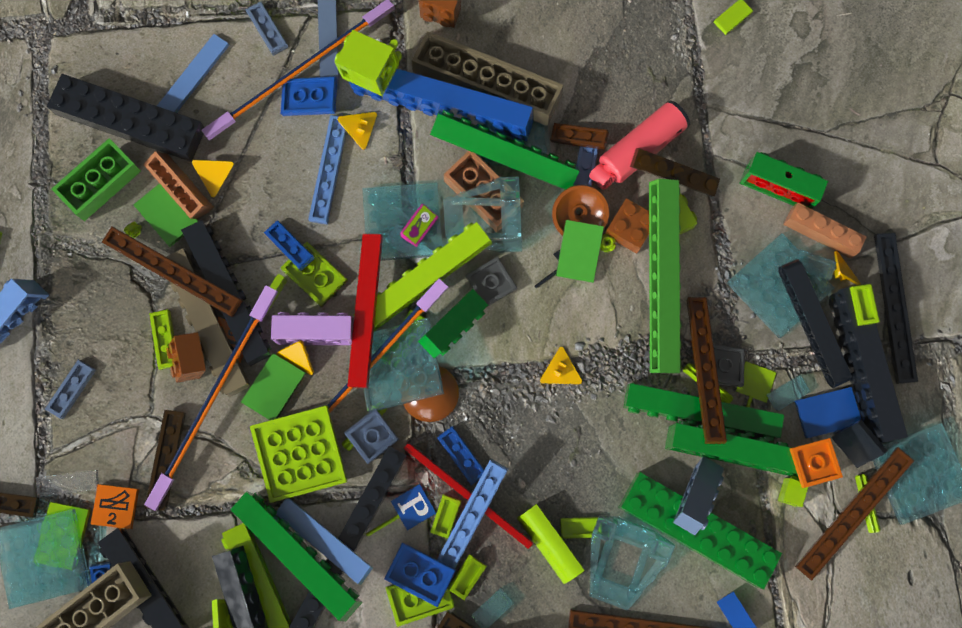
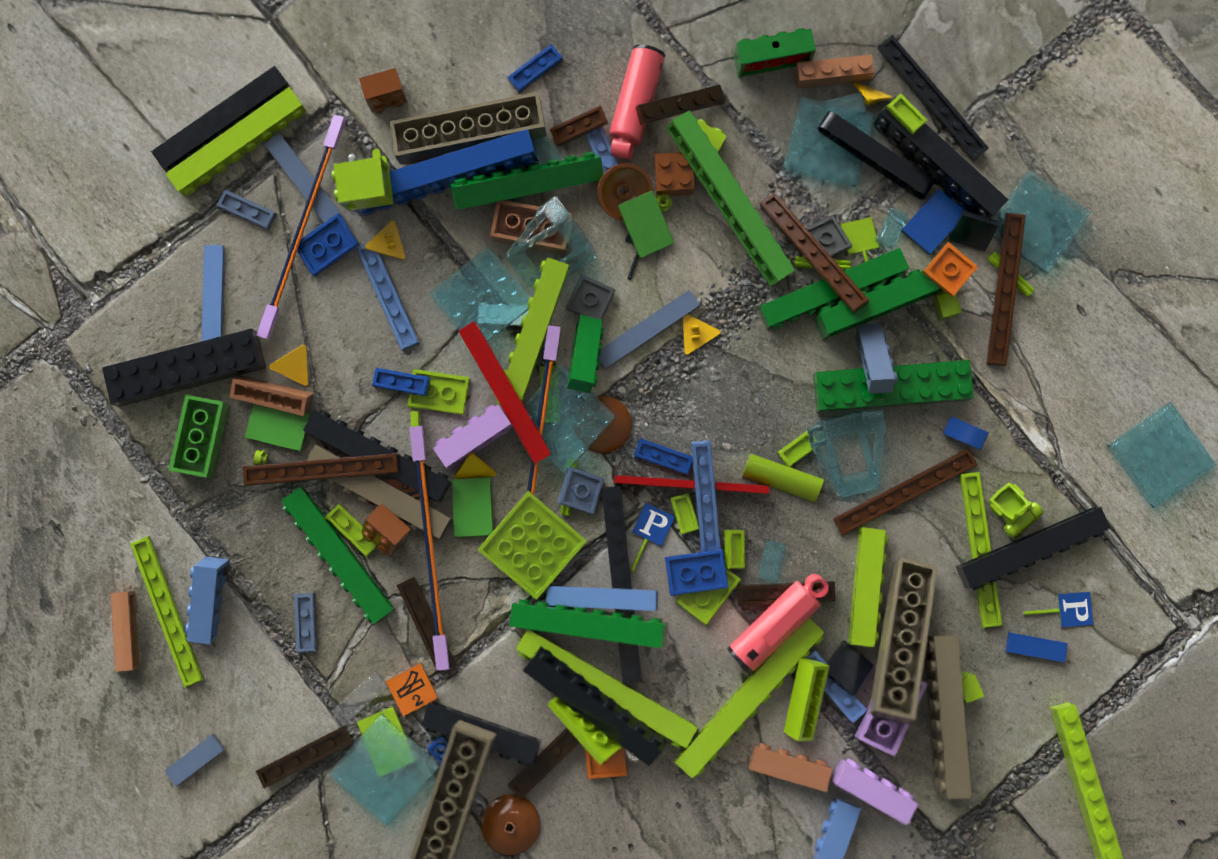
camera: 30 degrees left, 5 degrees up
(135, 352) = (338, 555): none -> green brick
(419, 225) = (499, 292): slope -> none
(522, 339) = (648, 329): none -> sand blue tile
(575, 68) = (535, 68): none -> blue tile

